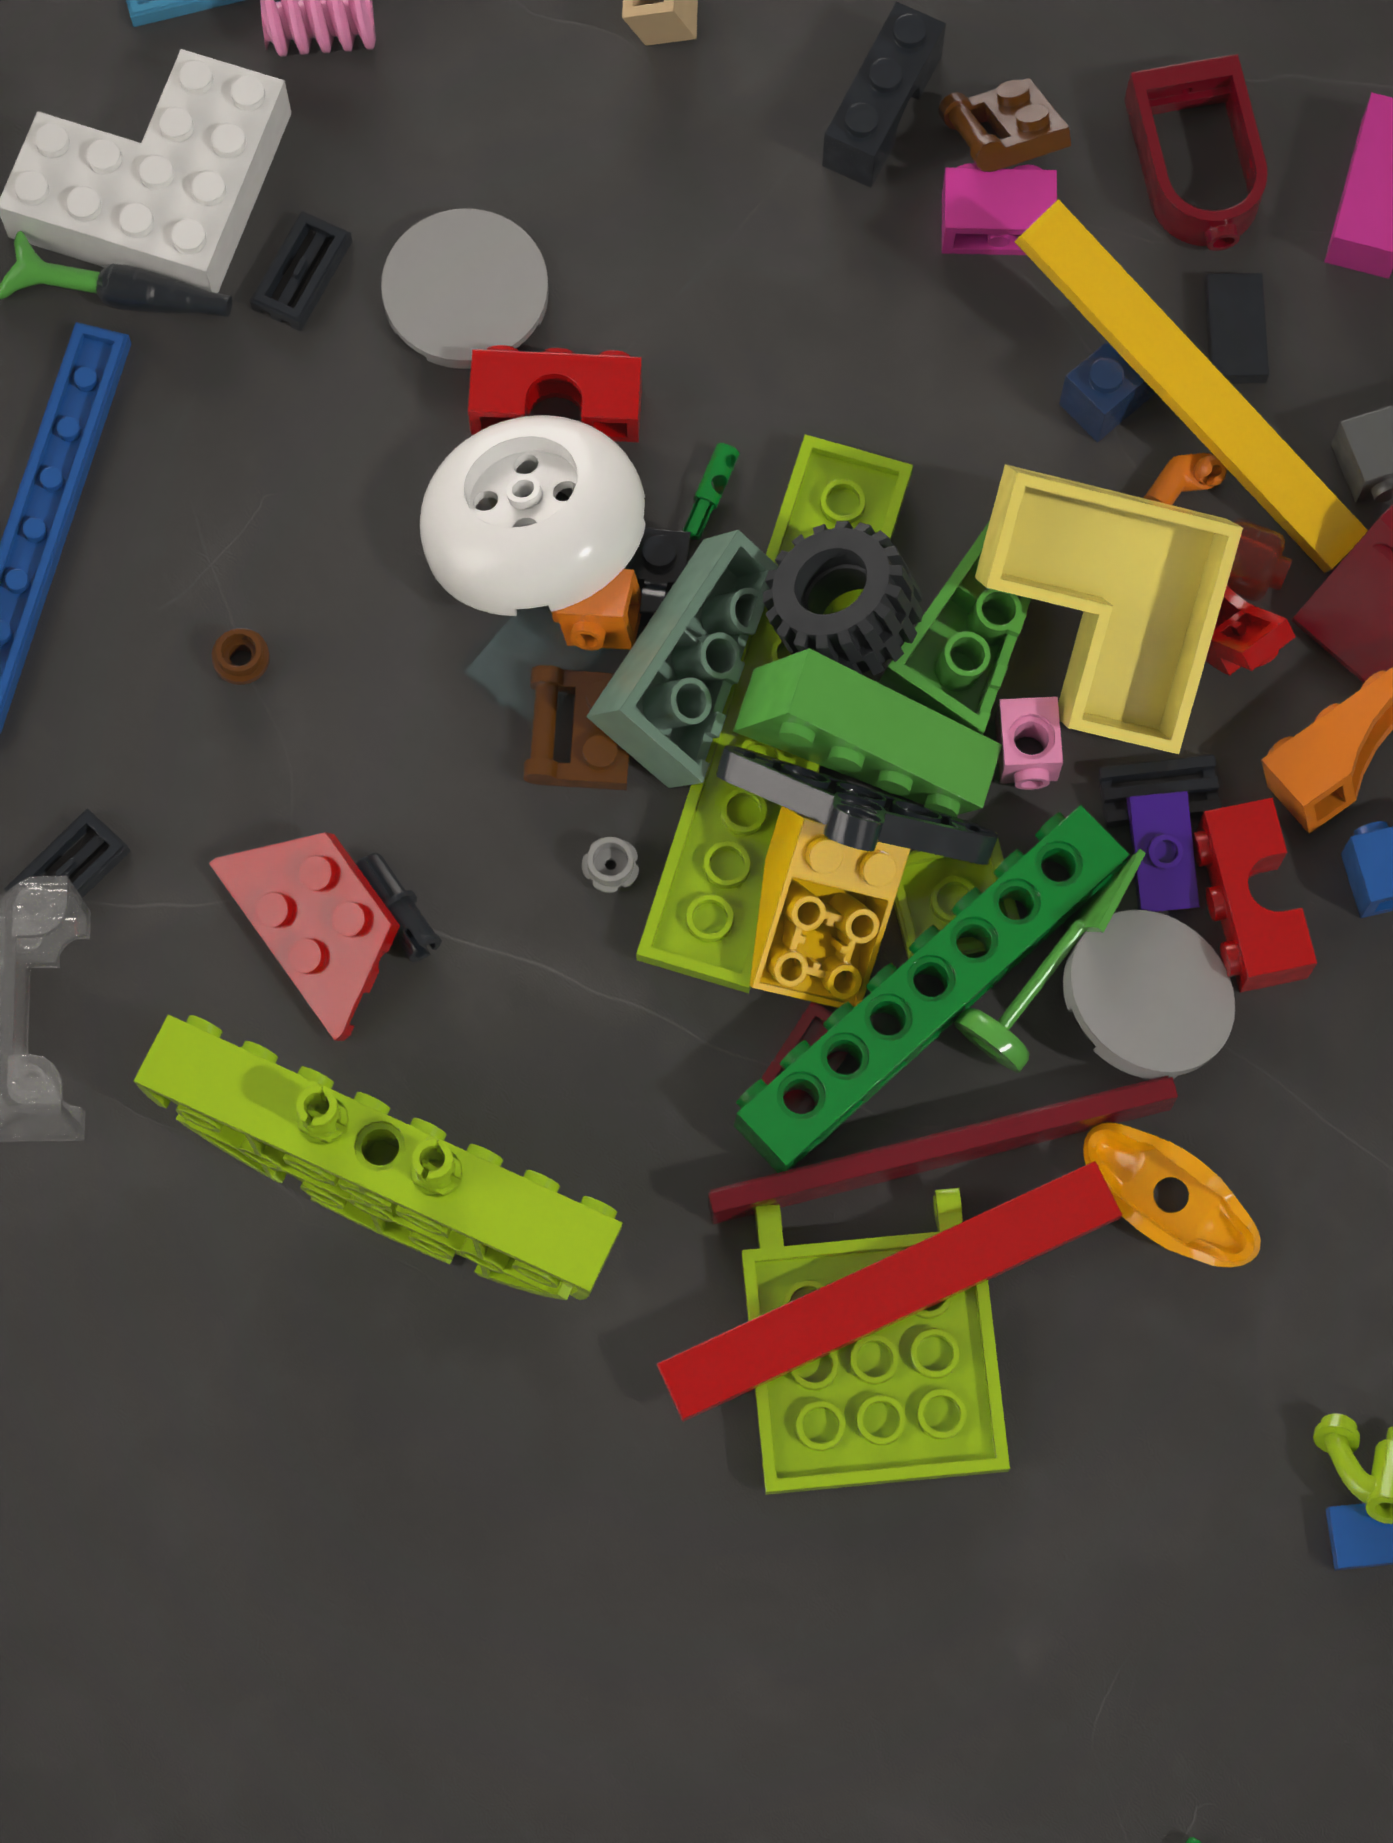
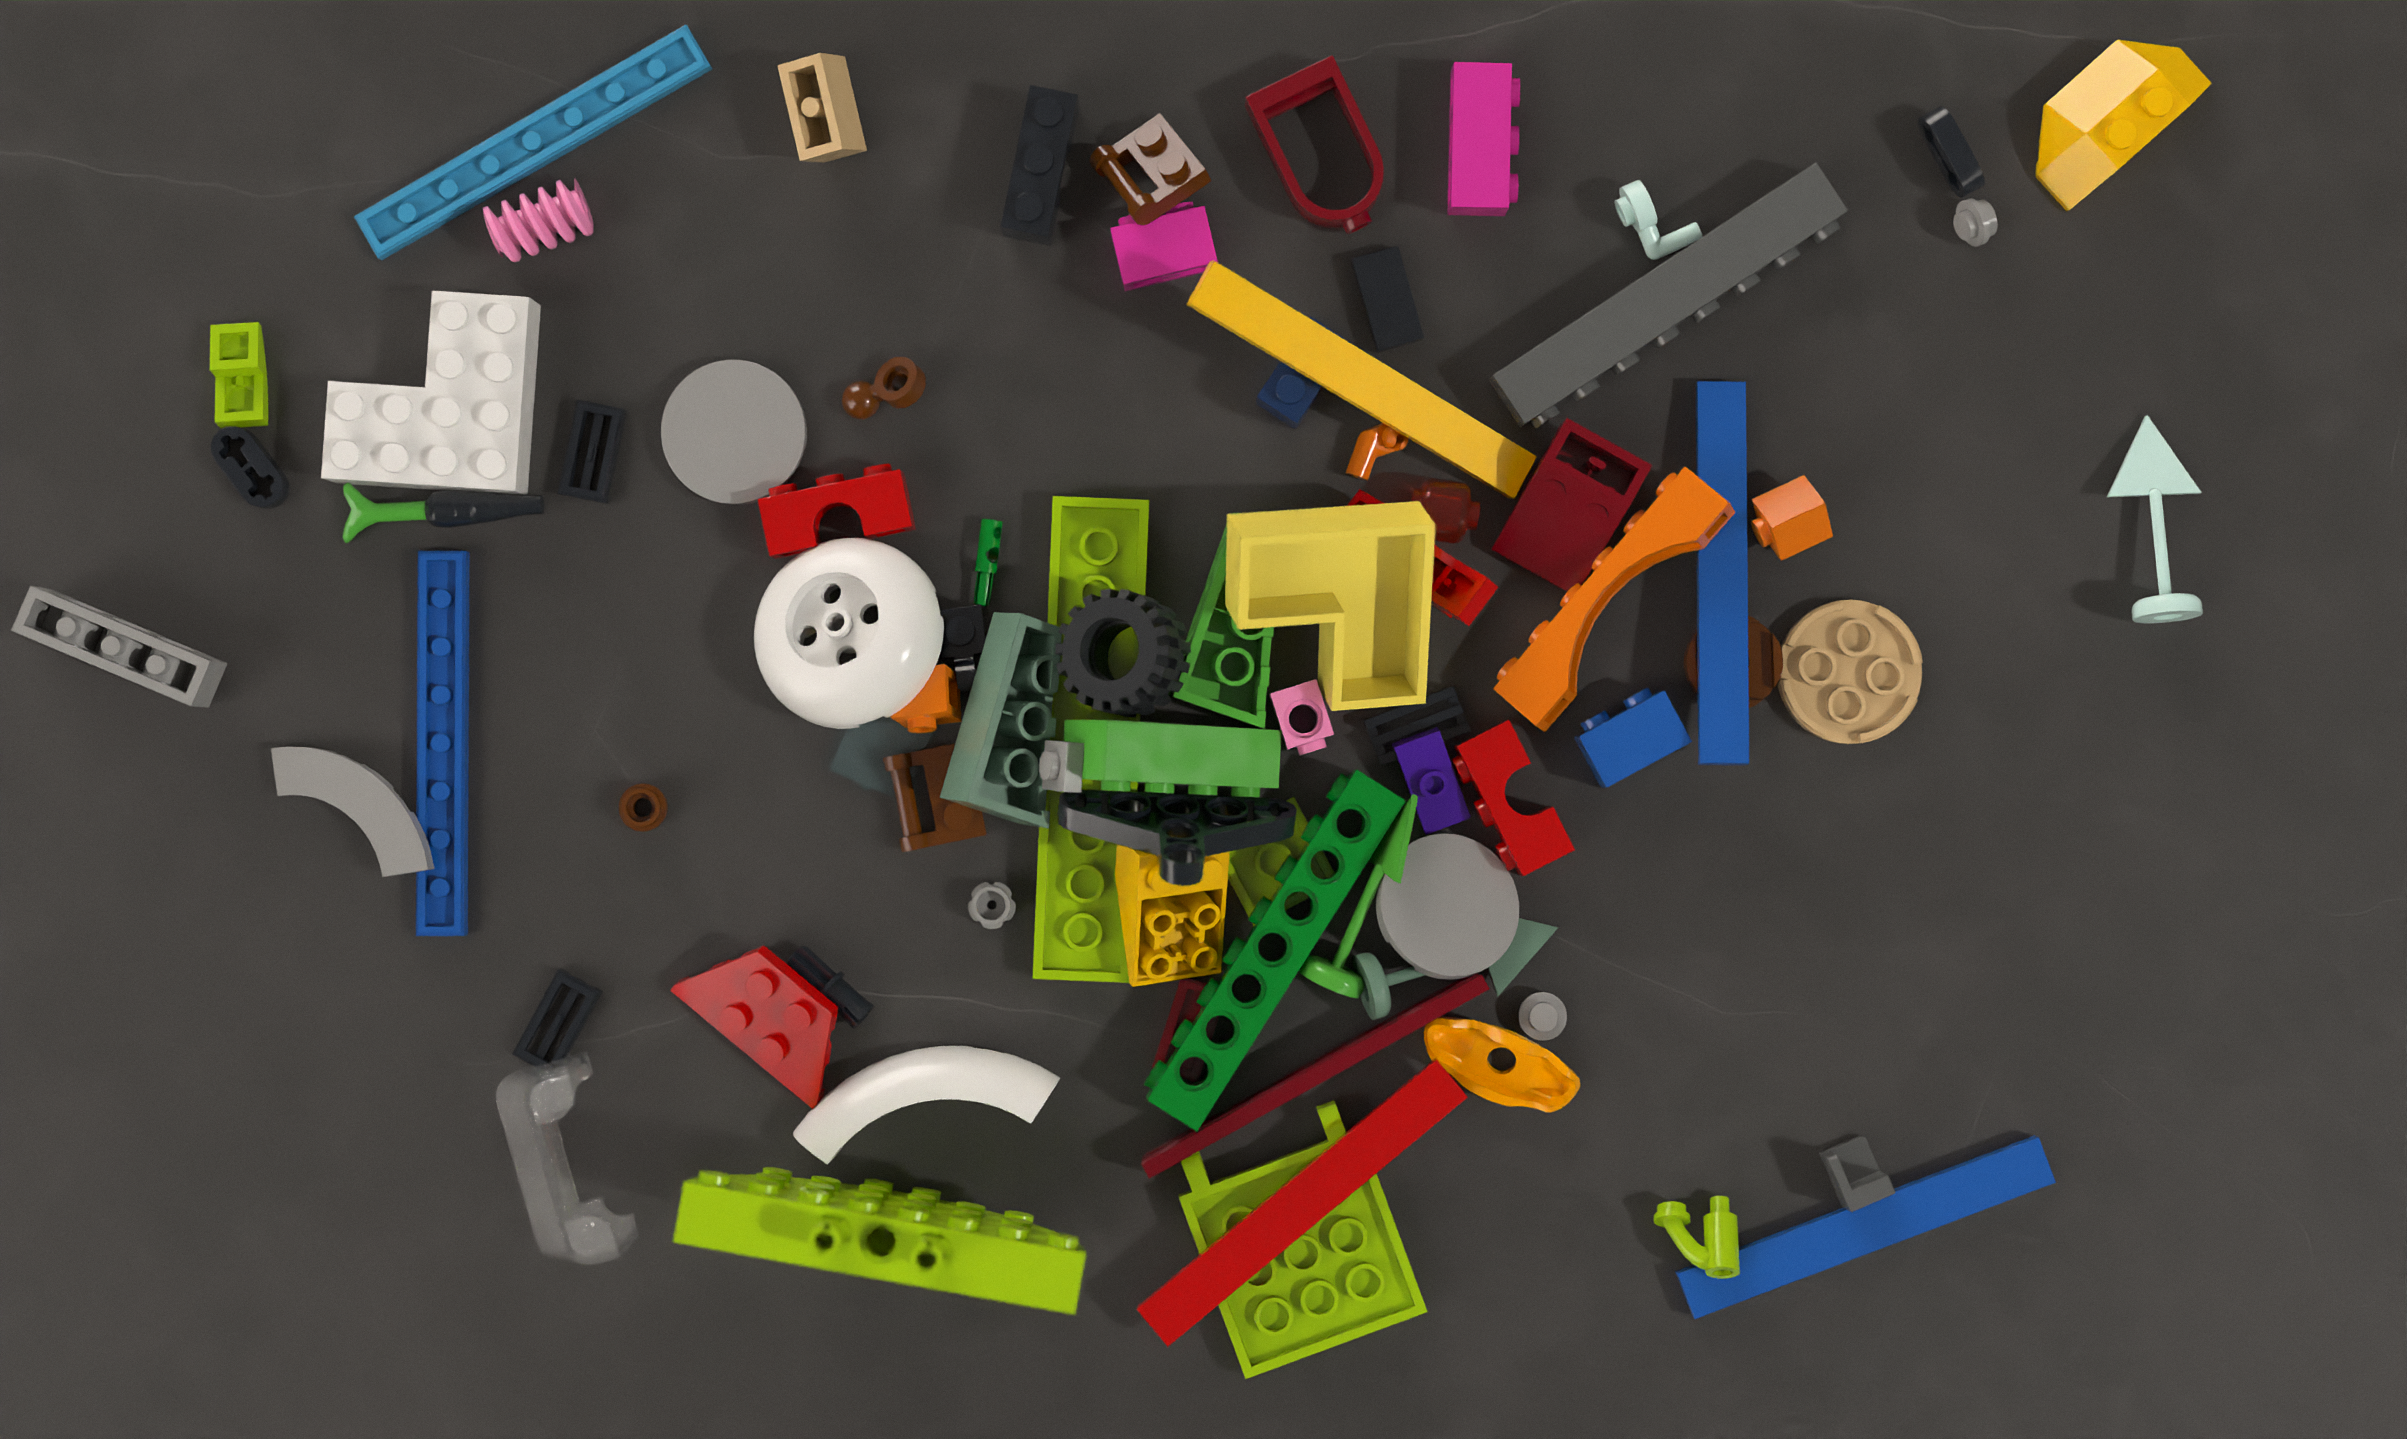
camera: 15 degrees left, 15 degrees up
(474, 1039) = (921, 1077): none -> white brick
(660, 279) = (896, 383): none -> reddish brown plate
(738, 708) = (1062, 766): none -> light grey plate
(1221, 1074) = (1376, 995): none -> sand green piece
(1233, 1155) = (1542, 1016): none -> light grey plate

